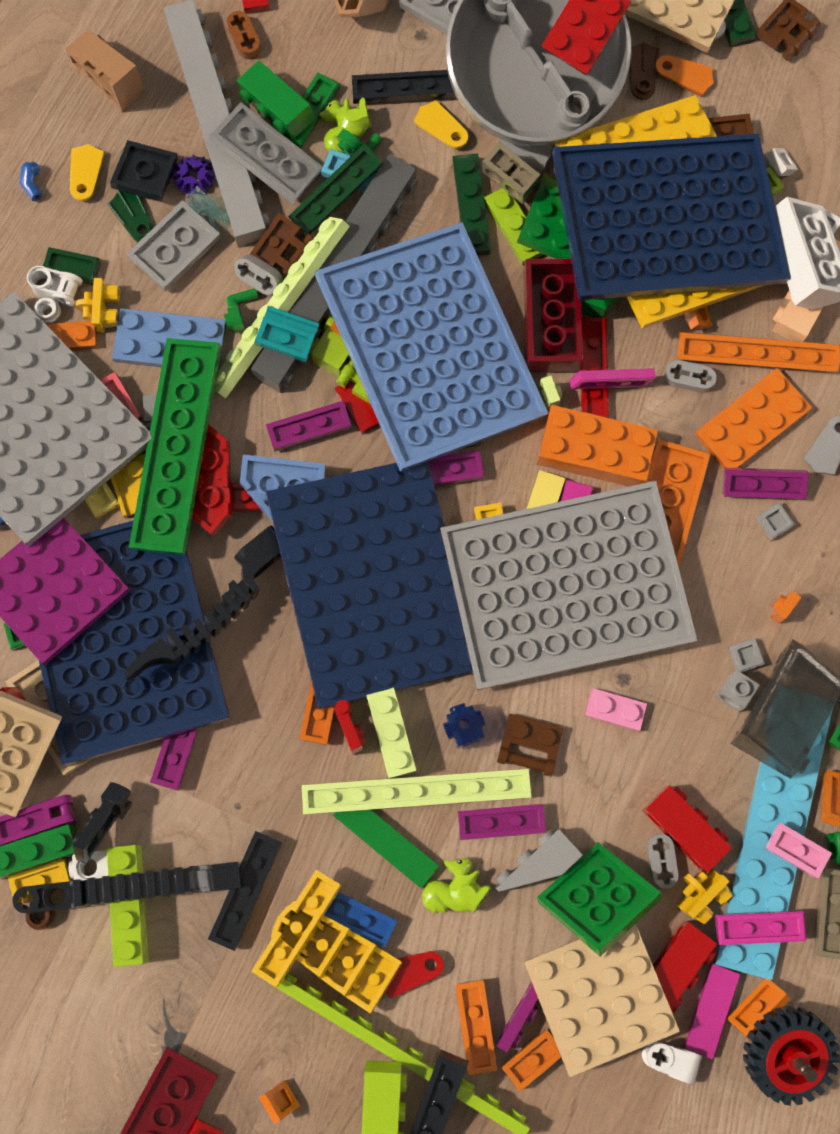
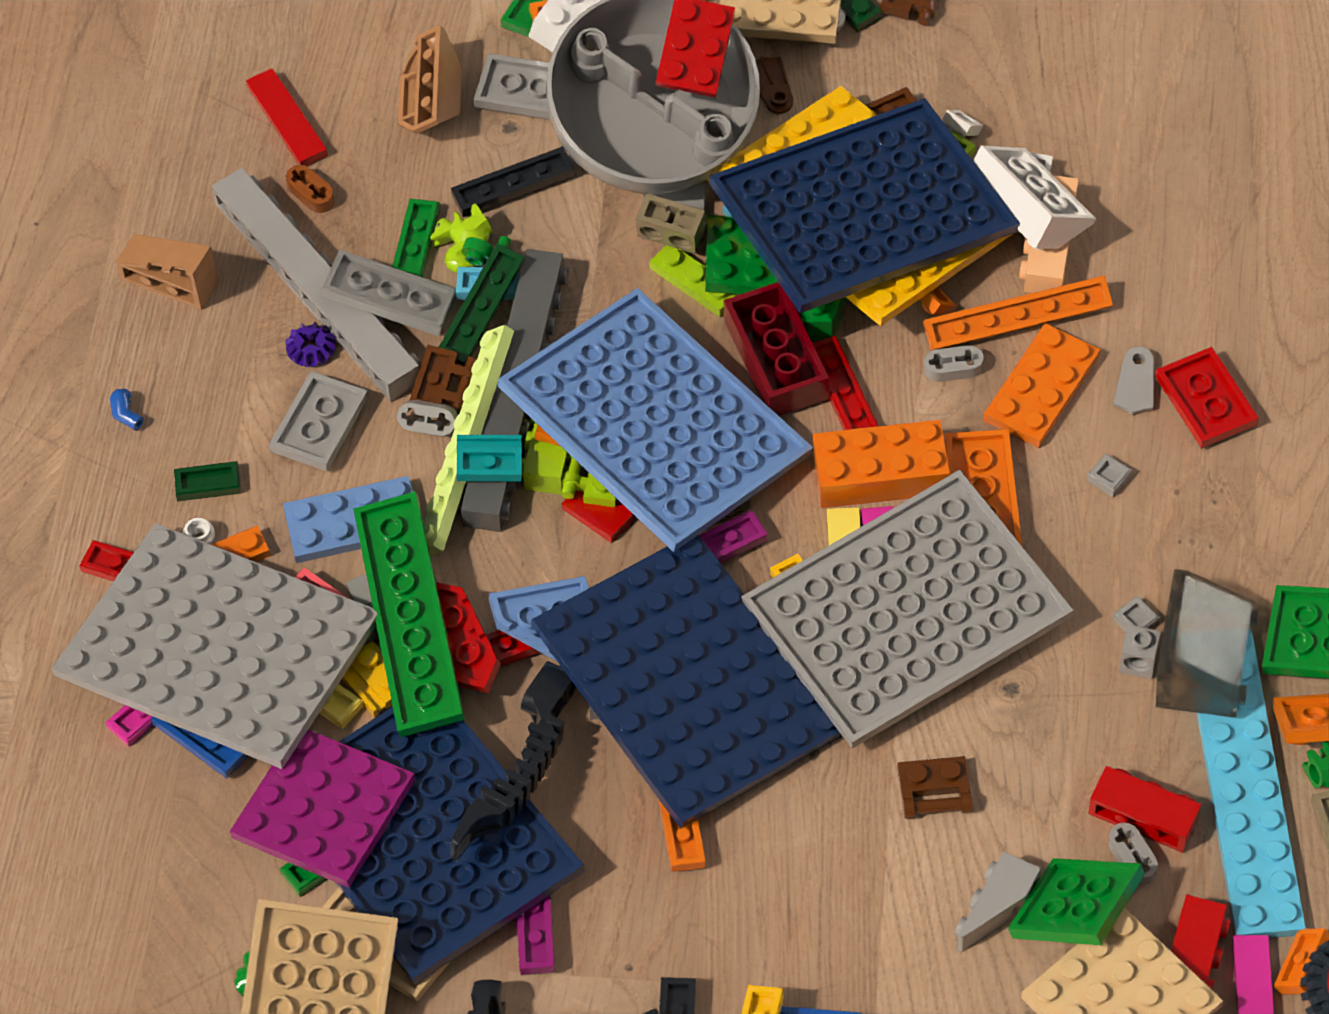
camera: 15 degrees left, 20 degrees down
(59, 285) = (198, 503): white piece -> none
(85, 170) = (183, 380): yellow piece -> none
(101, 317) = (268, 517): yellow hips -> none
(131, 214) = (254, 406): dark green piece -> none
(144, 170) = (253, 356): black plate -> none
(203, 204) = (339, 368): clear light blue plate -> none
(233, 317) = (418, 468): green plate -> none
(275, 100) = (376, 237): green brick -> none
(308, 426) = (548, 550): magenta plate -> none
(352, 733) = (726, 830): red plate -> none
(389, 844) = (813, 941): green tile -> none
(391, 734) = (774, 826): yellowish green brick -> none
(415, 791) = (826, 873): yellowish green plate -> none
(441, 125) = (570, 207): yellow piece -> none
(461, 894) = (922, 961): lime animal -> none
(464, 736) = (853, 788): clear blue brick -> none
(471, 201) = (634, 266): dark green plate -> none
(501, 822) = (935, 874): magenta plate -> none
(550, 392) = (804, 424): yellowish green plate -> none
(612, 378) = (868, 388): dark pink tile -> none
(615, 709) = (1015, 720): bright pink plate -> none
(685, 73) = (820, 72): orange piece -> none
(701, 892) = (1189, 864): yellow hips -> none
(760, 928) = (1268, 875): dark pink tile -> none
(765, 483) = (1081, 438): magenta plate -> none
(784, 606) = (1155, 551): orange plate -> none
(798, 850) = (1274, 781): bright pink plate -> none

